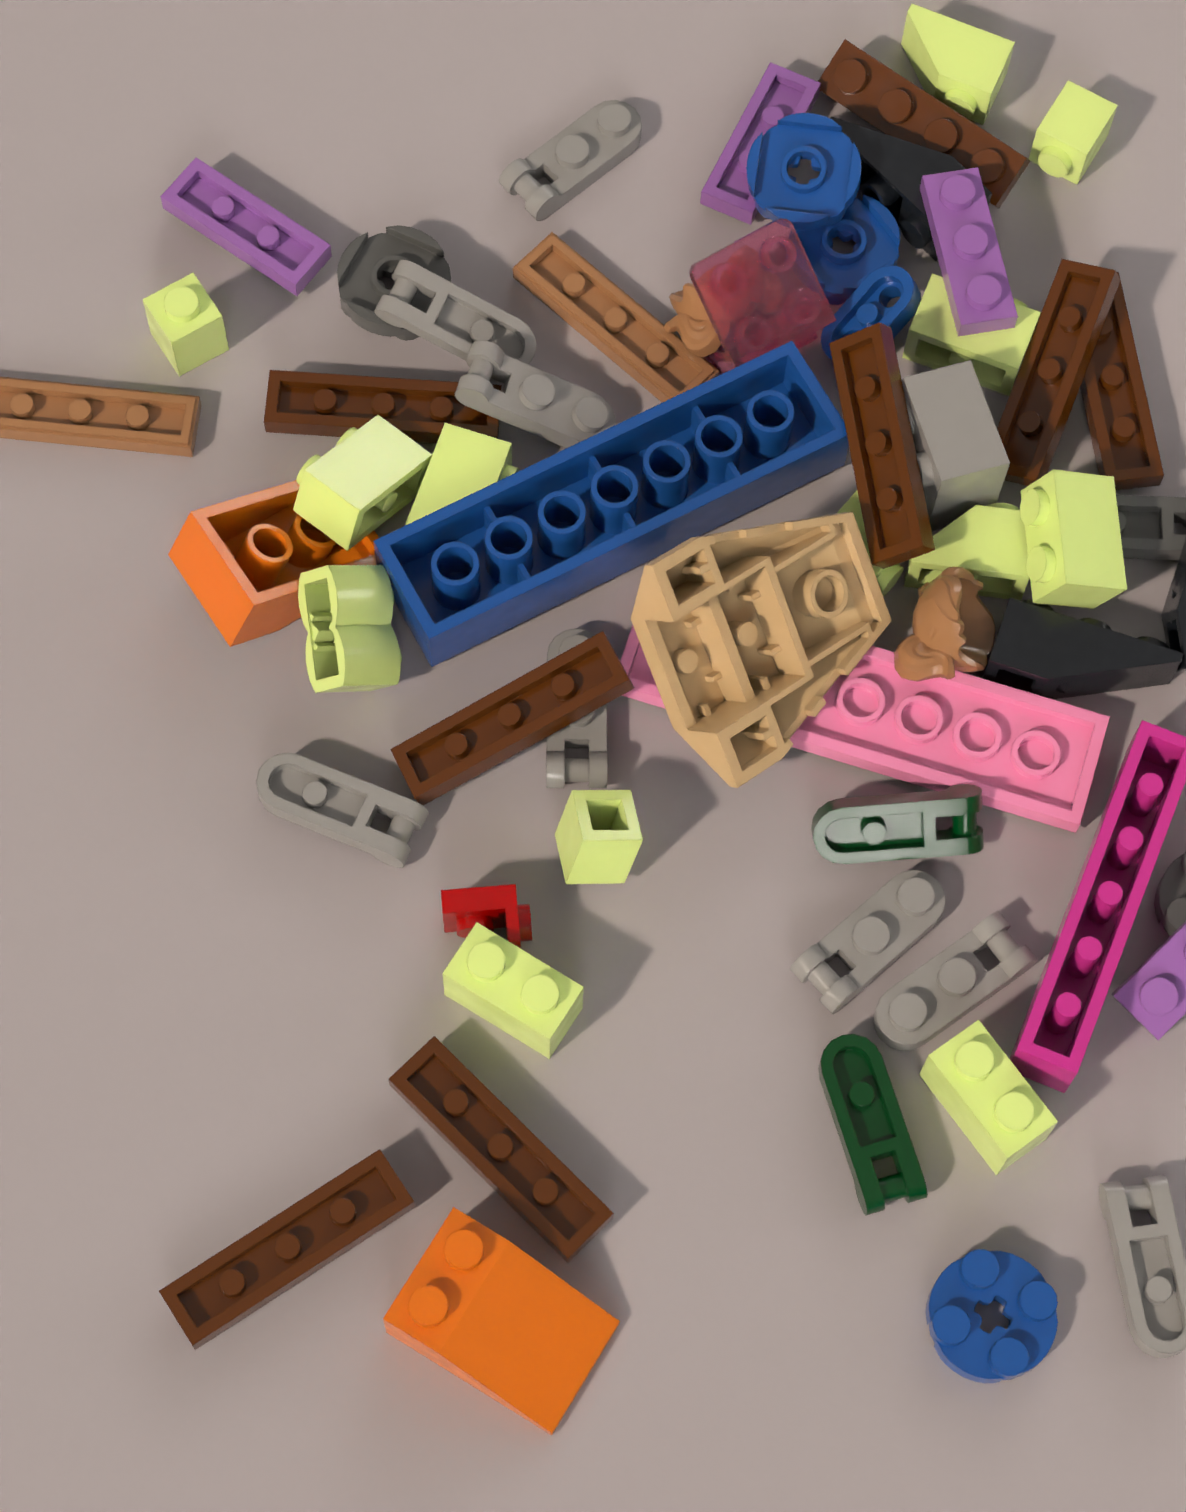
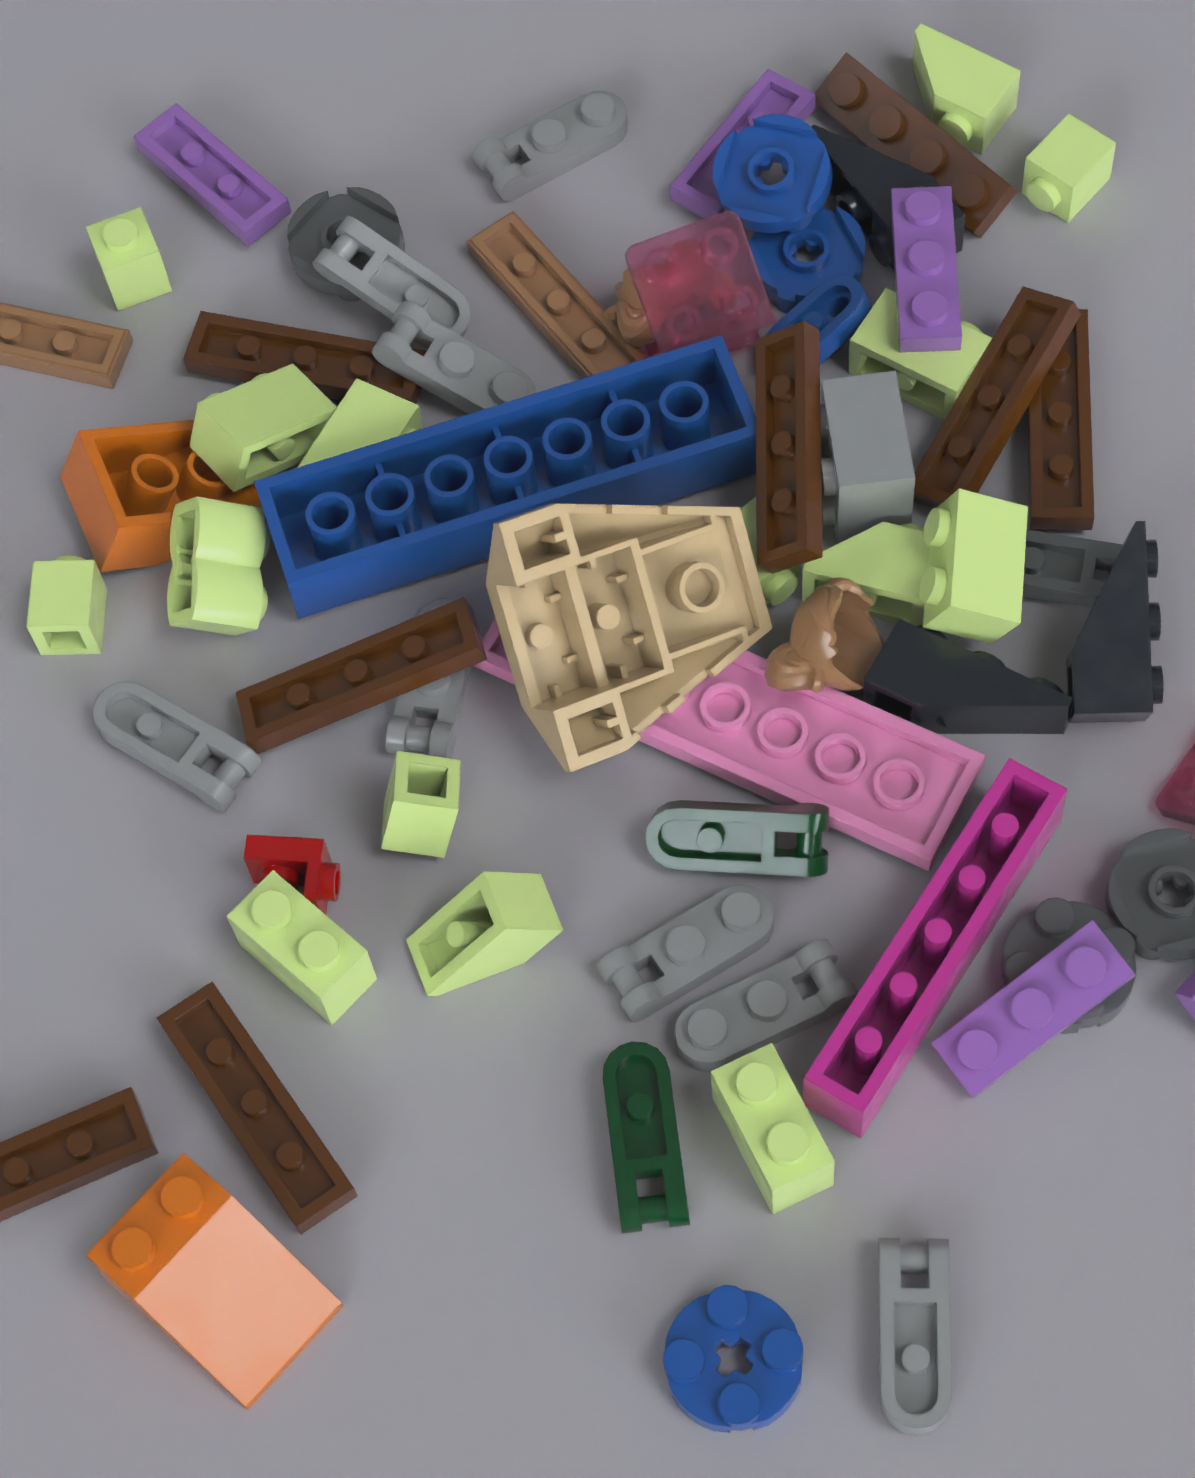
camera: 20 degrees right, 5 degrees down
(205, 684) = (67, 606): none -> yellowish green brick
(680, 950) = (484, 931): none -> yellowish green slope

